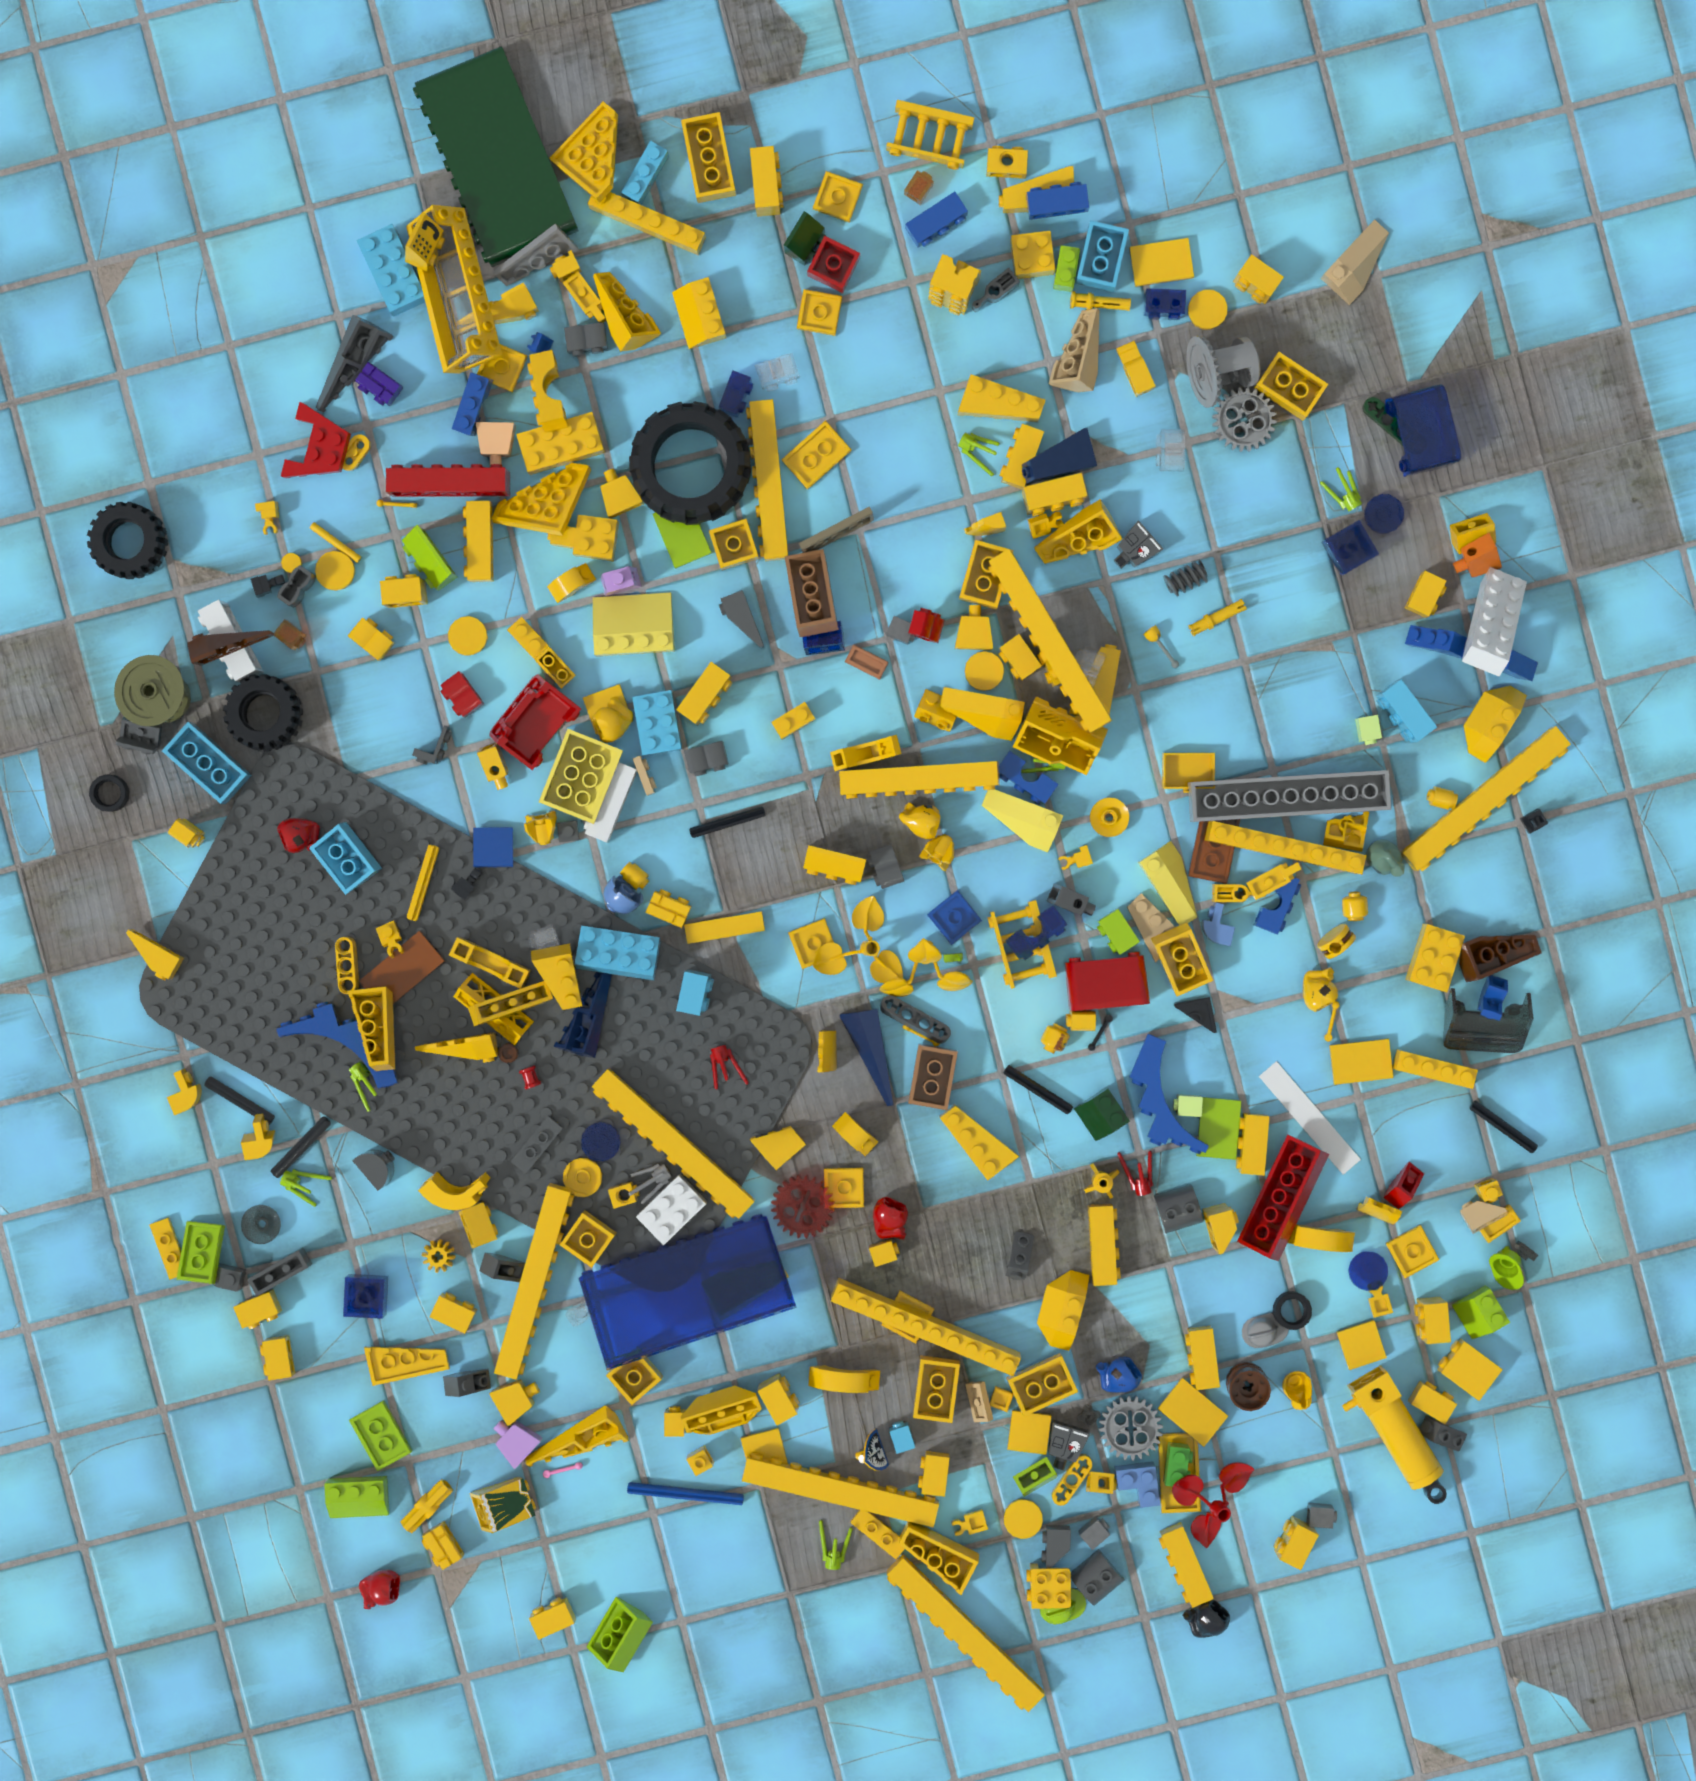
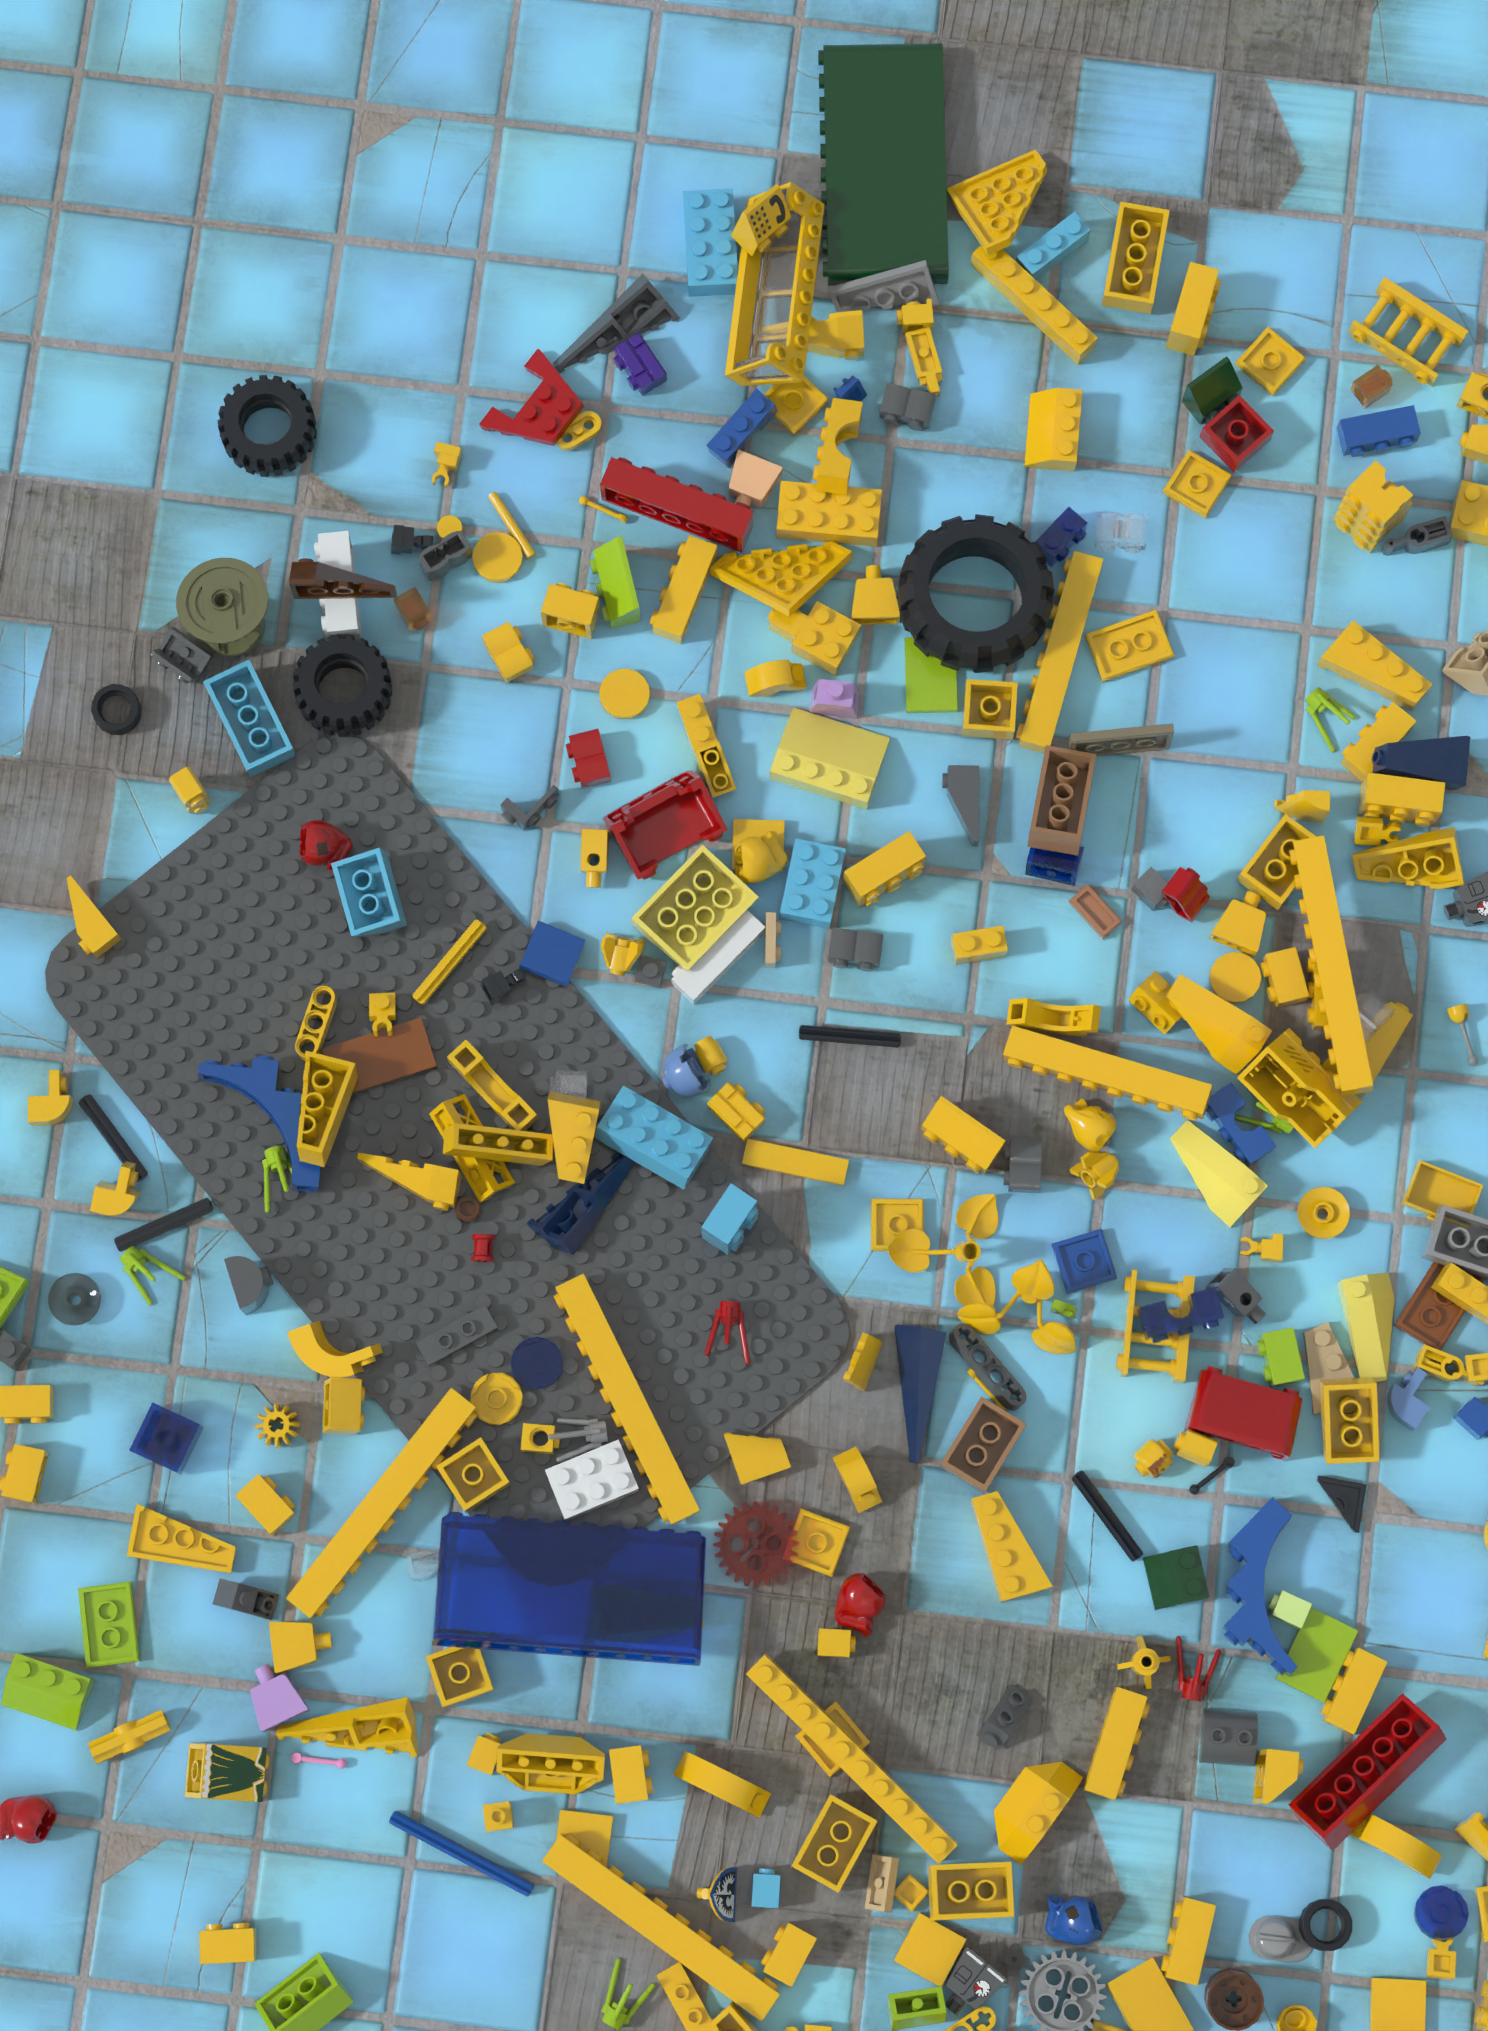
camera: 20 degrees right, 10 degrees down
(279, 1271) = (73, 1365): dark grey brick -> none
(442, 1545) = (128, 1795): yellow brick -> none
(502, 1267) = (349, 1471): dark grey slope -> none
(625, 320) = (962, 404): yellow wedge -> none
(1309, 1117) = (1436, 1687): white sticker -> none

